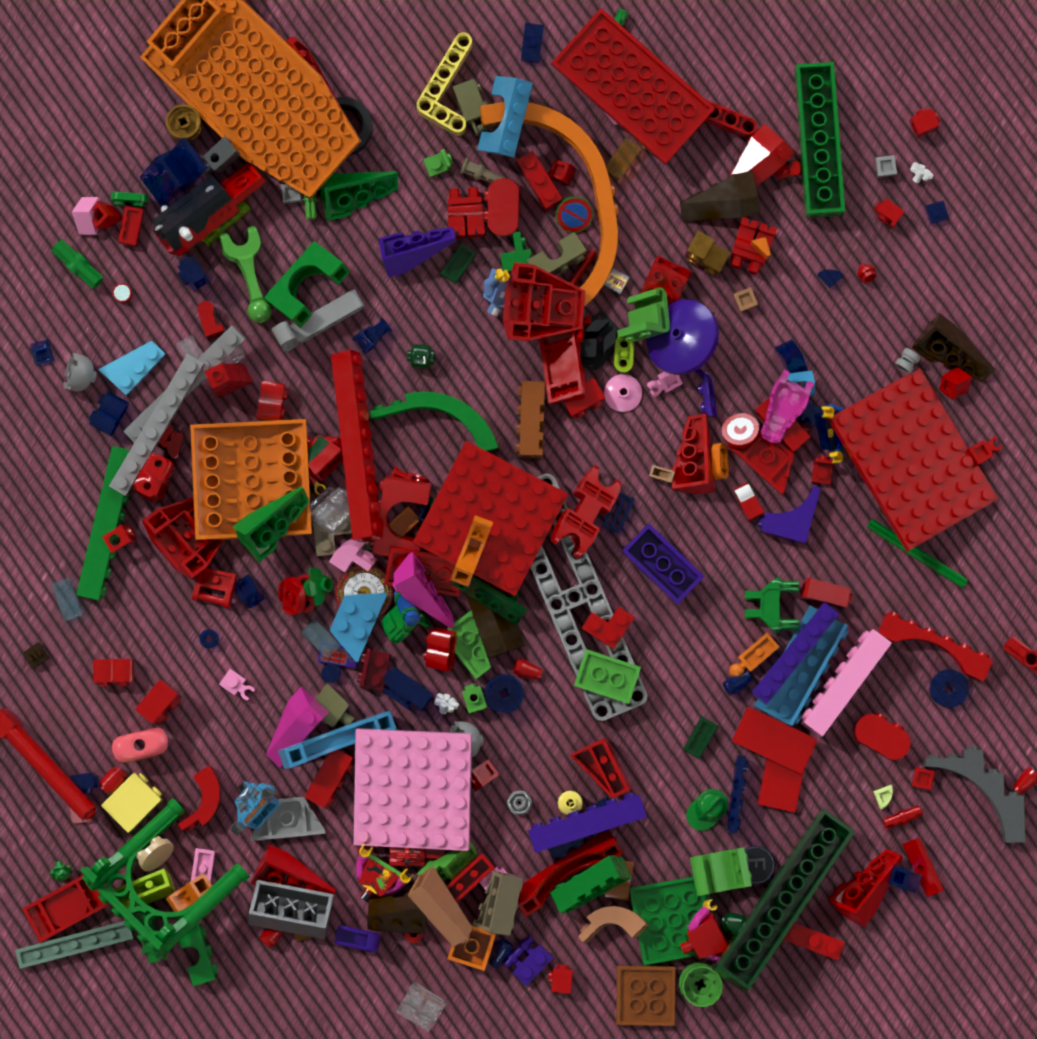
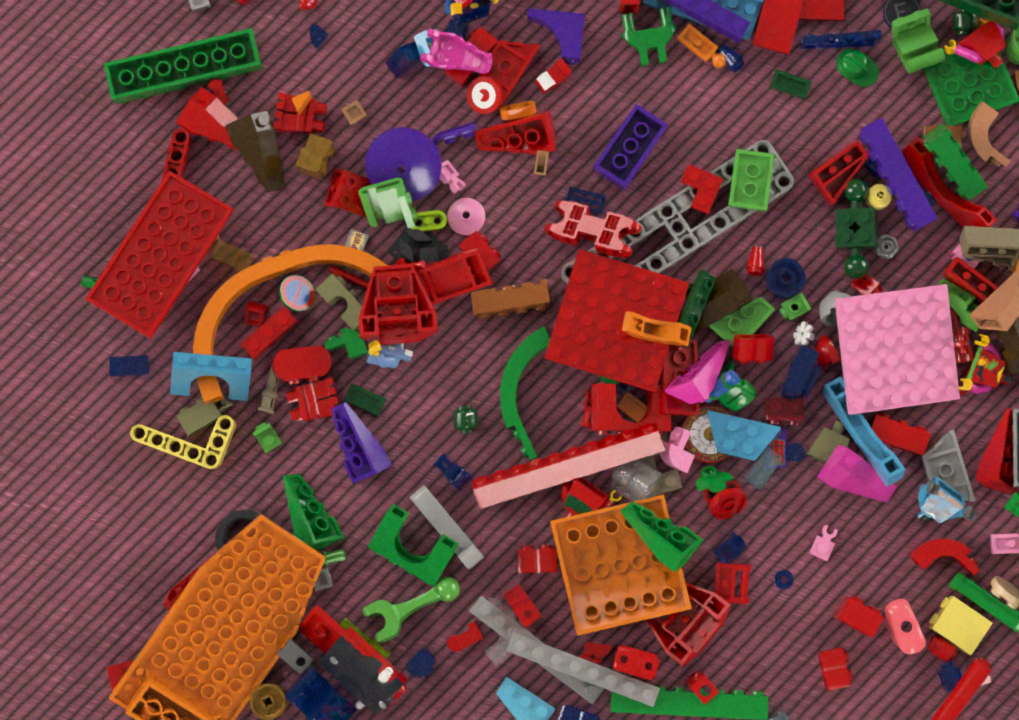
camera: 95 degrees left, 0 degrees up
(424, 721) = (827, 352): none -> red brick
(545, 763) = (866, 237): none -> dark green brick
(822, 470) = (509, 12): red bracket -> none

